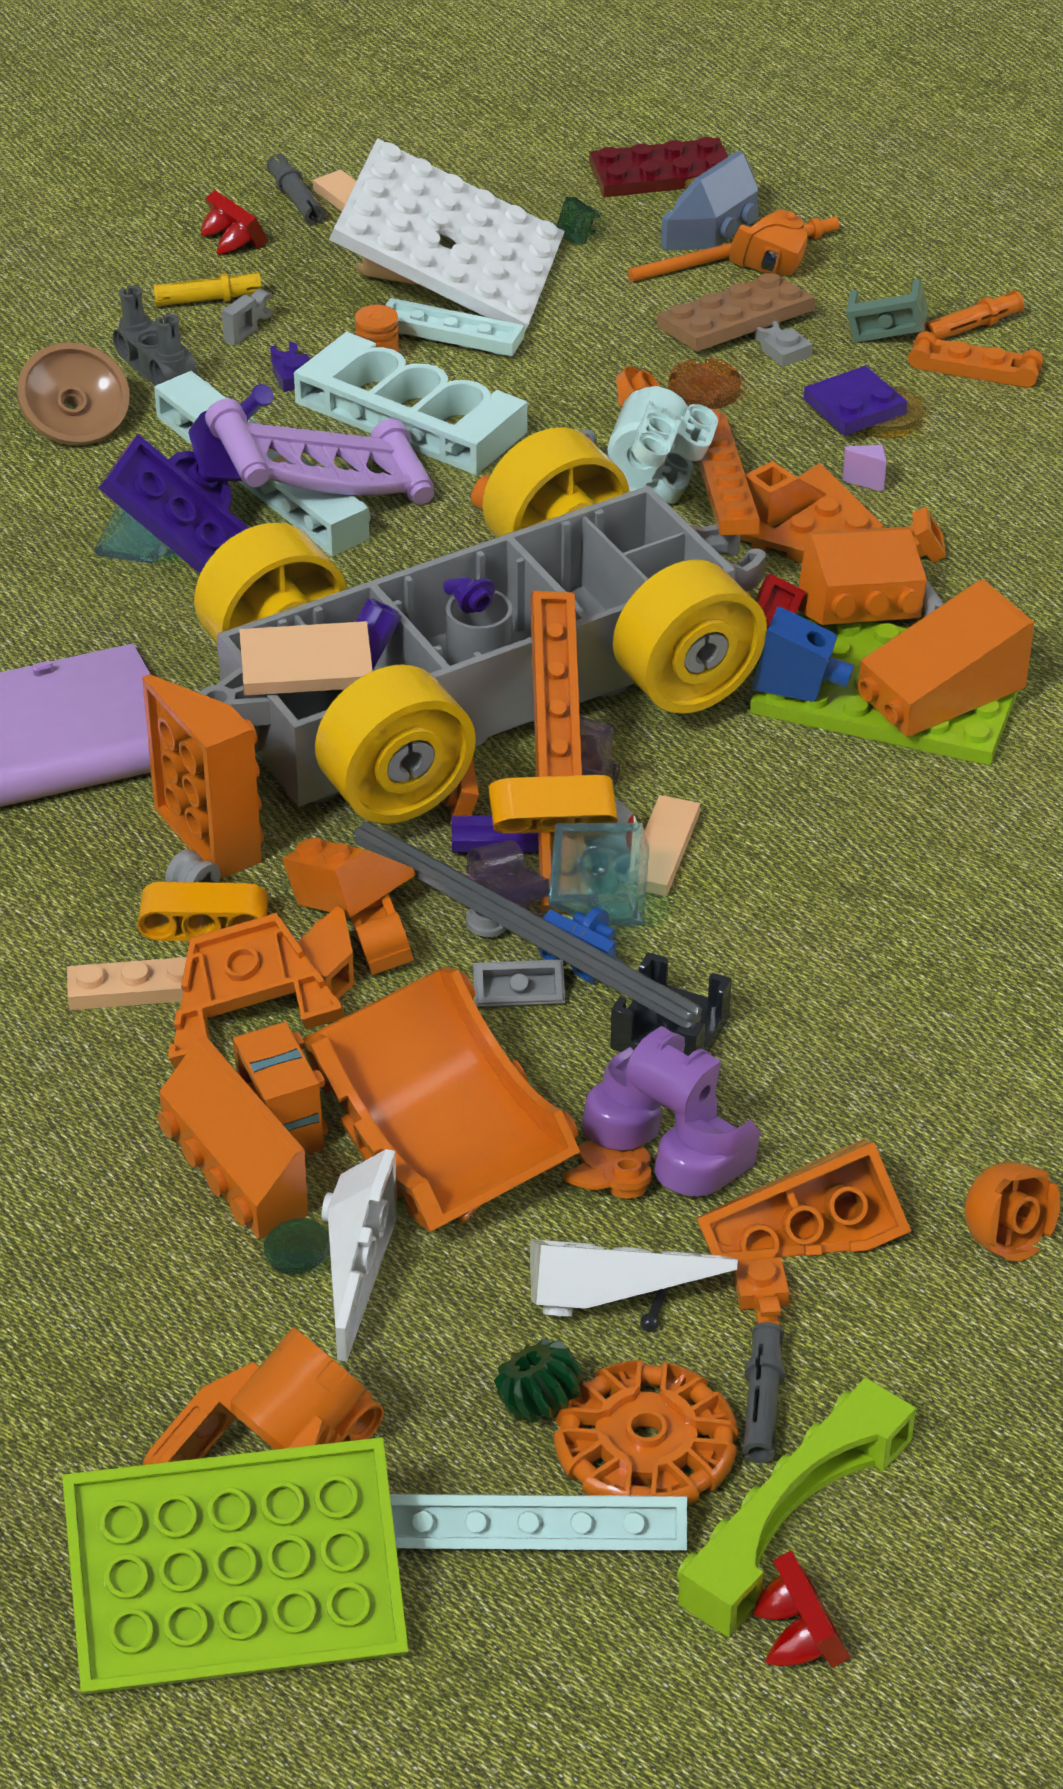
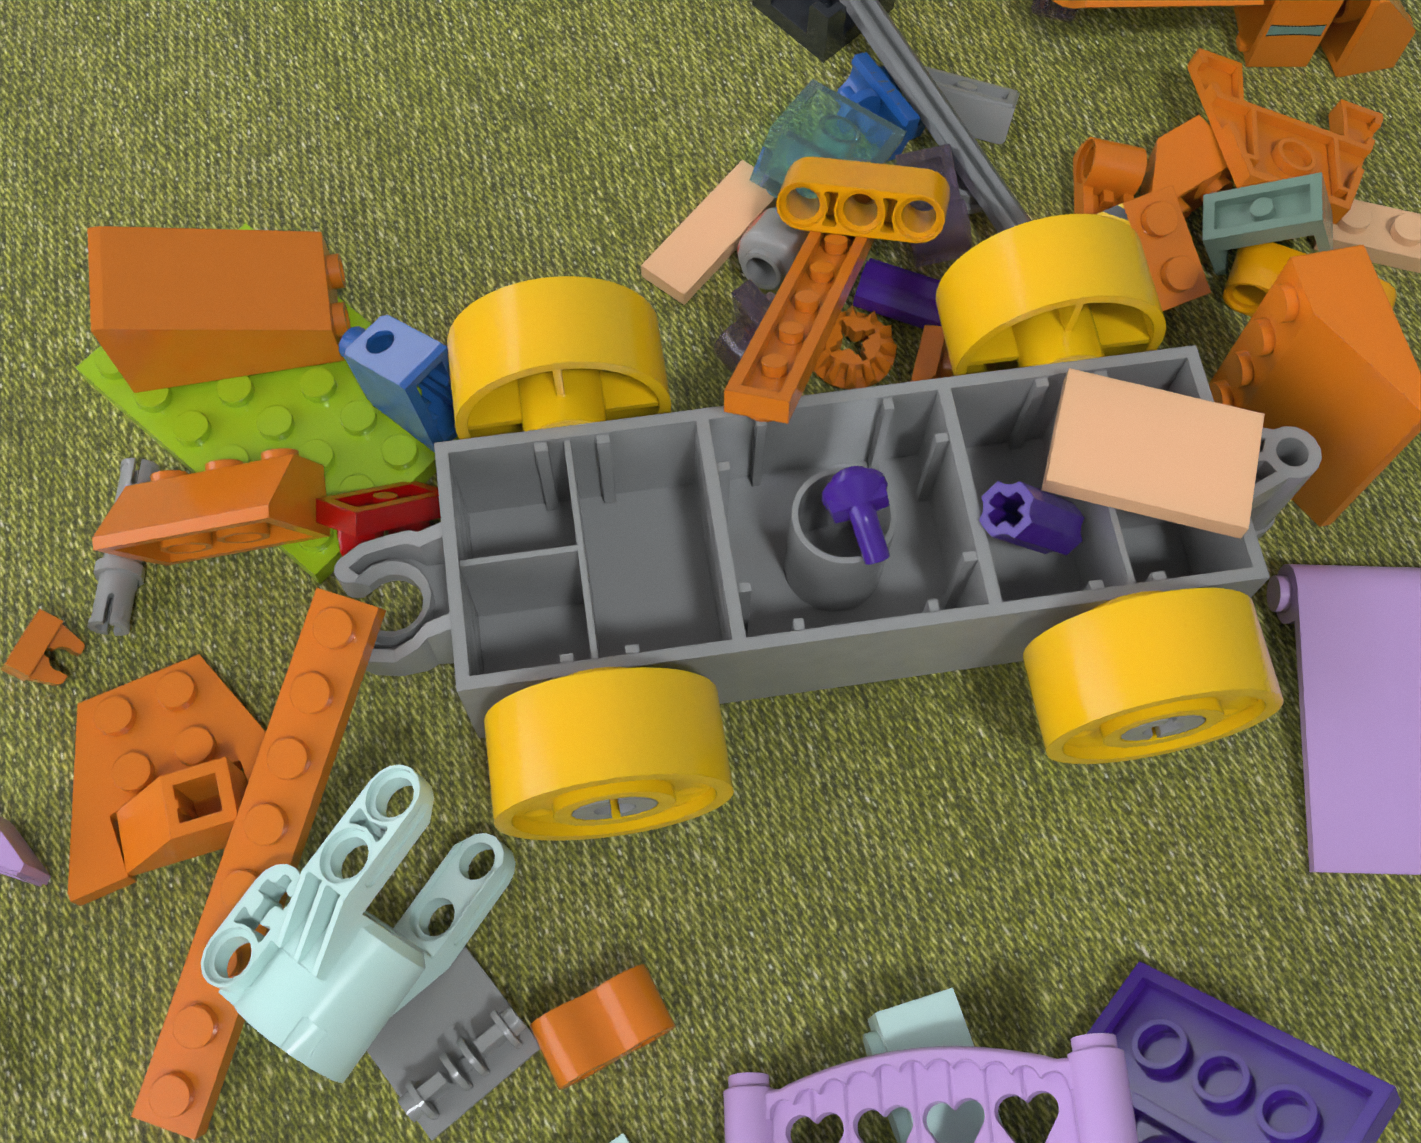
camera: 160 degrees left, 25 degrees up
(238, 900) = (1266, 215): none -> sand green panel

